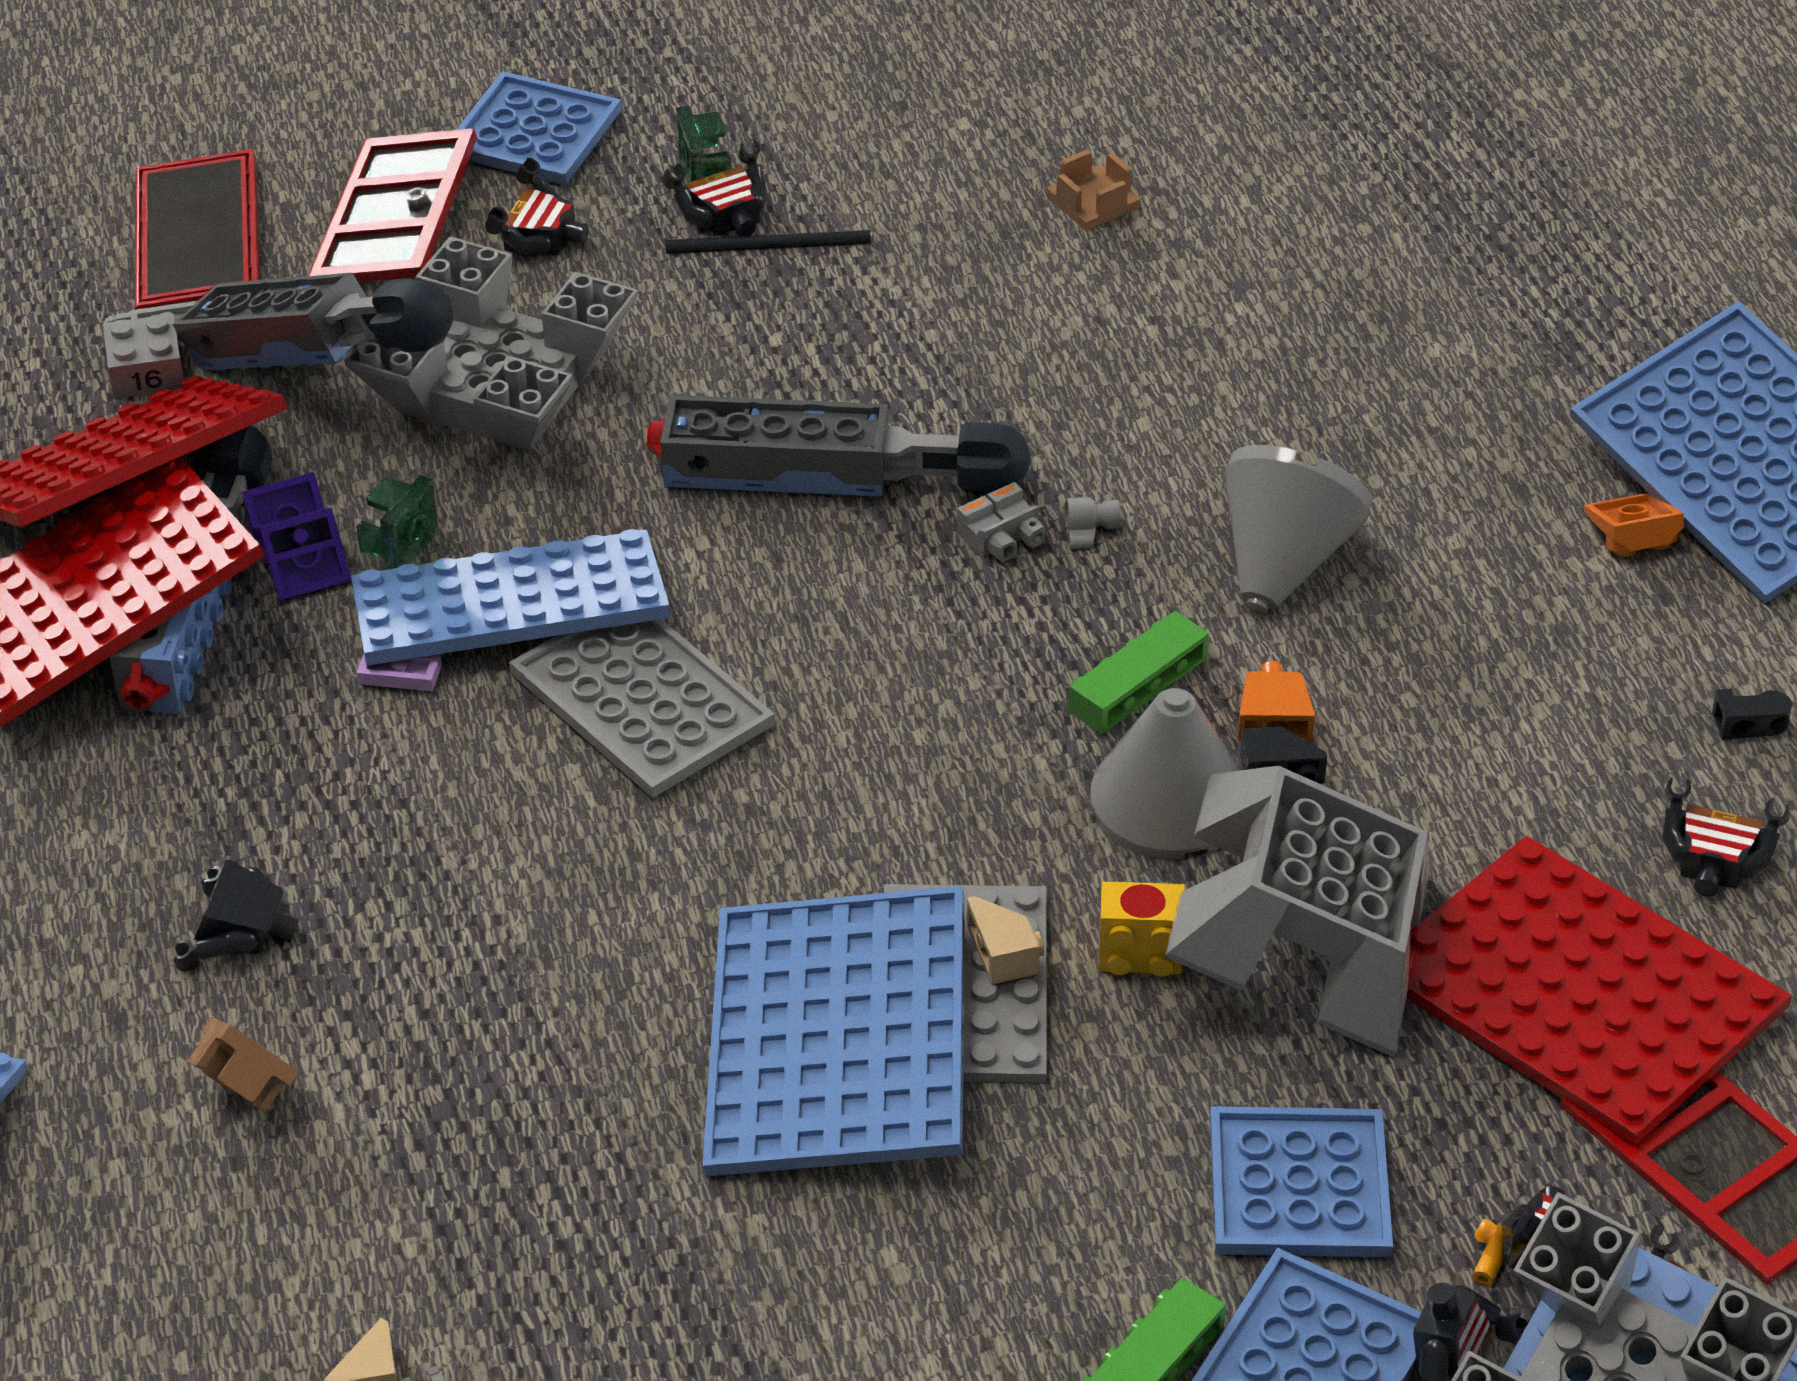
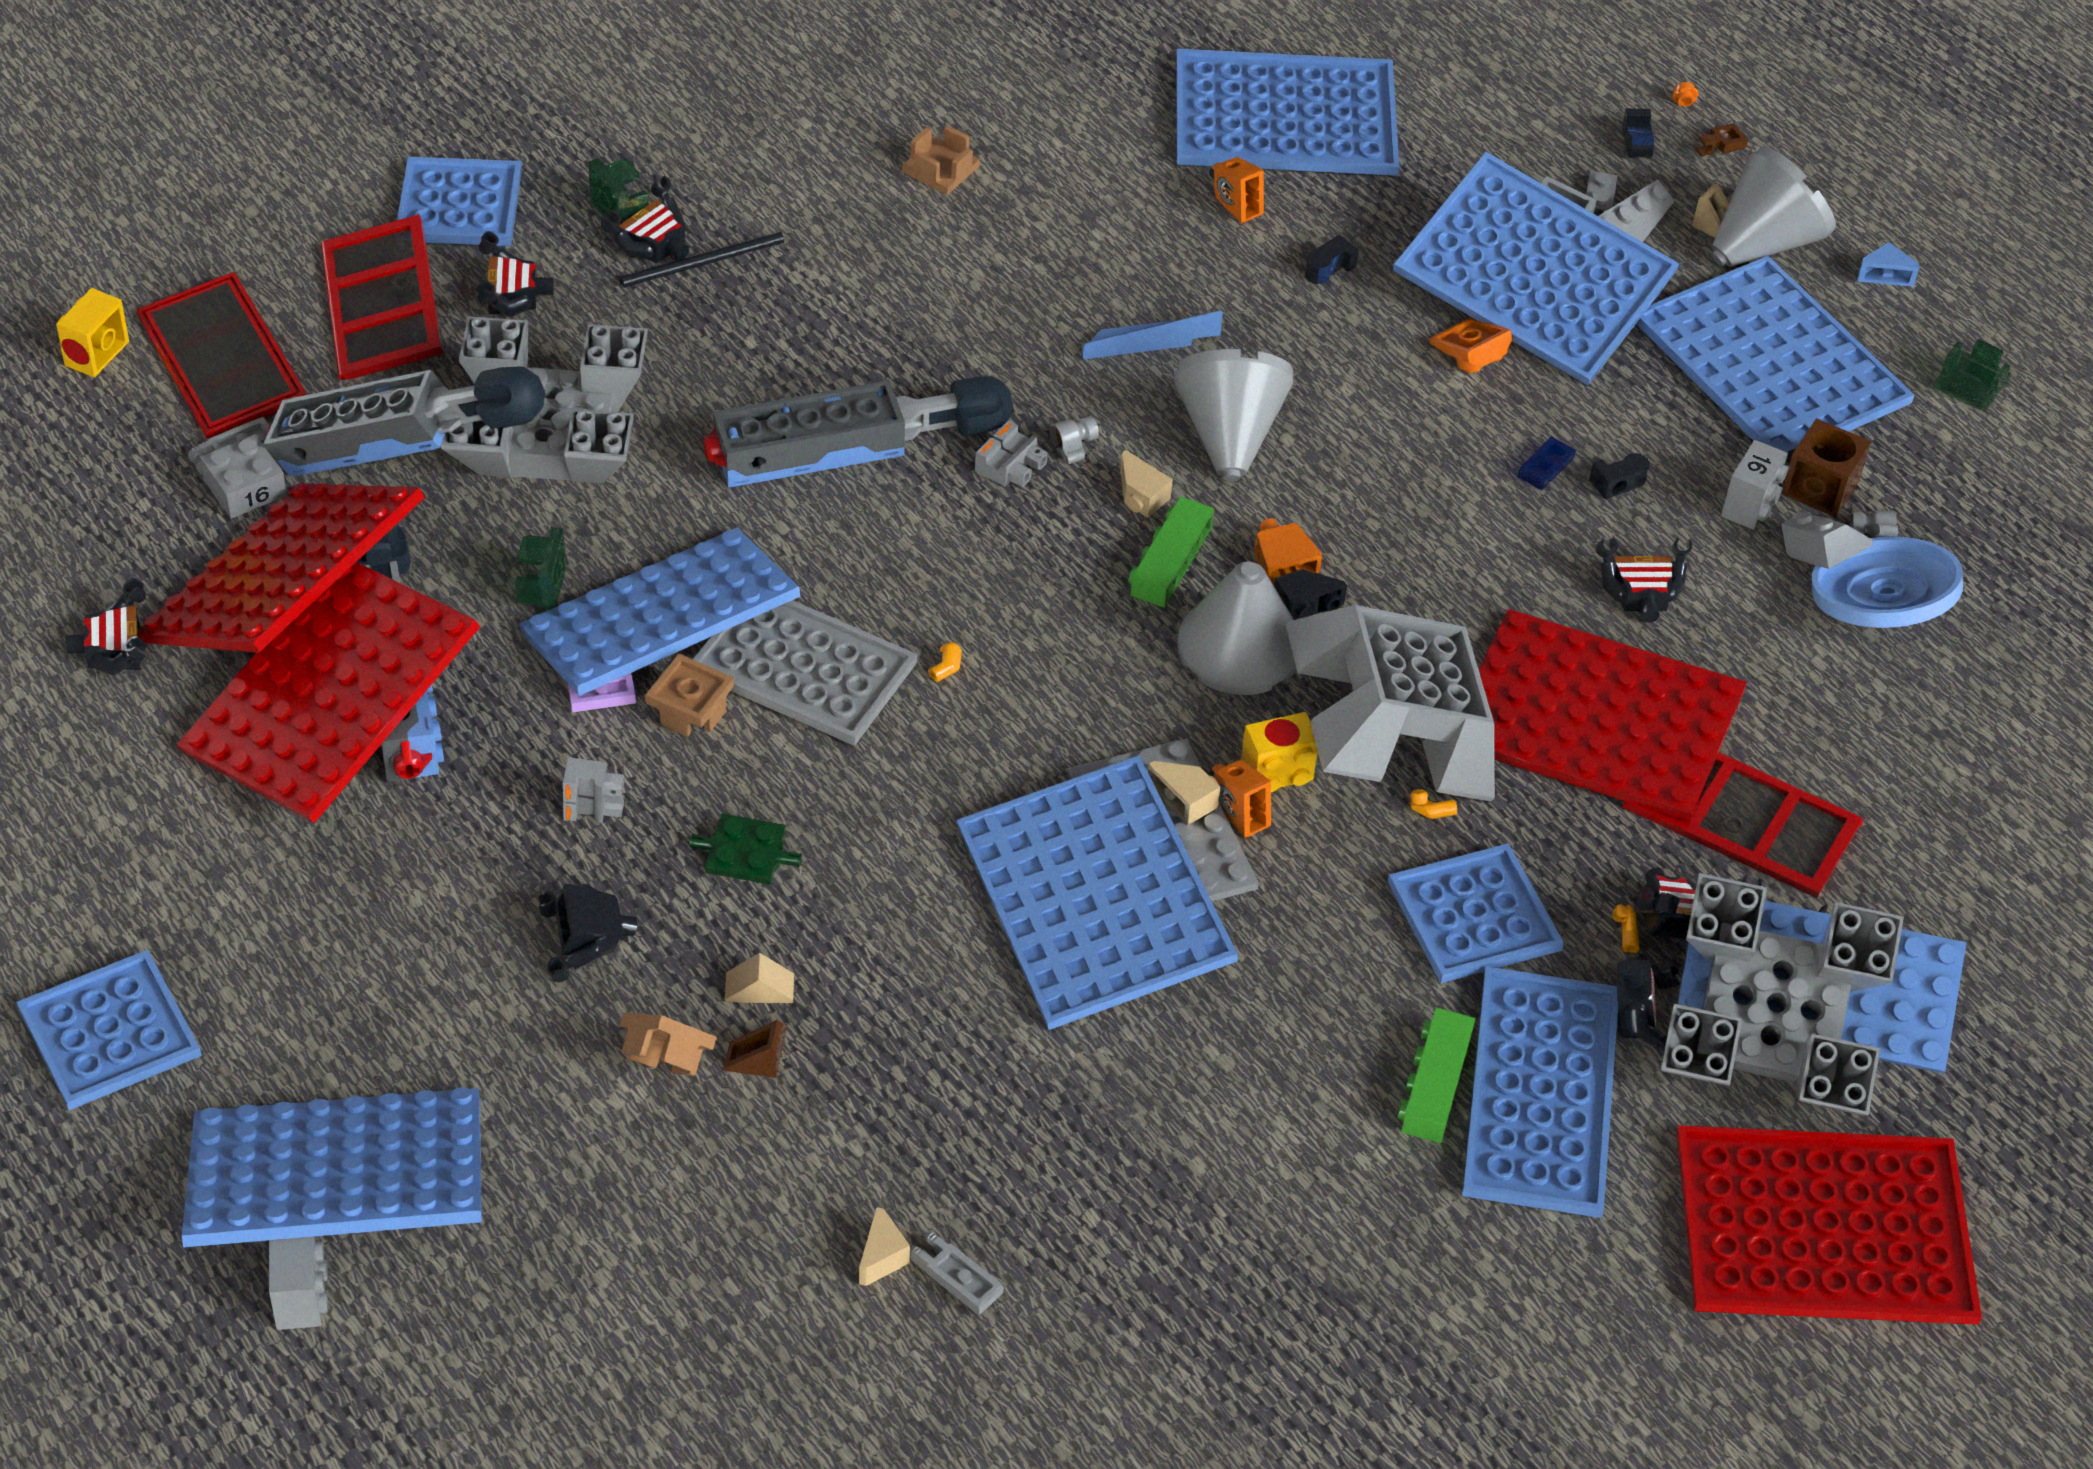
camera: 25 degrees left, 5 degrees up
(69, 177) = (92, 332): none -> yellow brick
(296, 536) = (453, 582): dark purple bracket -> none
(318, 768) = (591, 790): none -> light grey hips
(358, 1105) = (757, 1051): none -> reddish brown slope
(401, 1030) = (759, 982): none -> tan slope
(466, 879) = (746, 849): none -> dark green plate
(489, 694) = (690, 695): none -> medium nougat panel
(812, 733) = (950, 662): none -> light orange arm
(1073, 951) = (1244, 796): none -> orange torso
(1142, 591) = (1143, 485): none -> tan slope
(1242, 430) = (1153, 335): none -> medium blue wedge
(1307, 1044) = (1429, 809): none -> light orange arm
(1433, 279) = (1239, 188): none -> orange torso
(1504, 391) = (1329, 259): none -> black leg
(1536, 220) = (1286, 111): none -> medium blue plate
(1662, 679) = (1546, 463): none -> clear blue plate

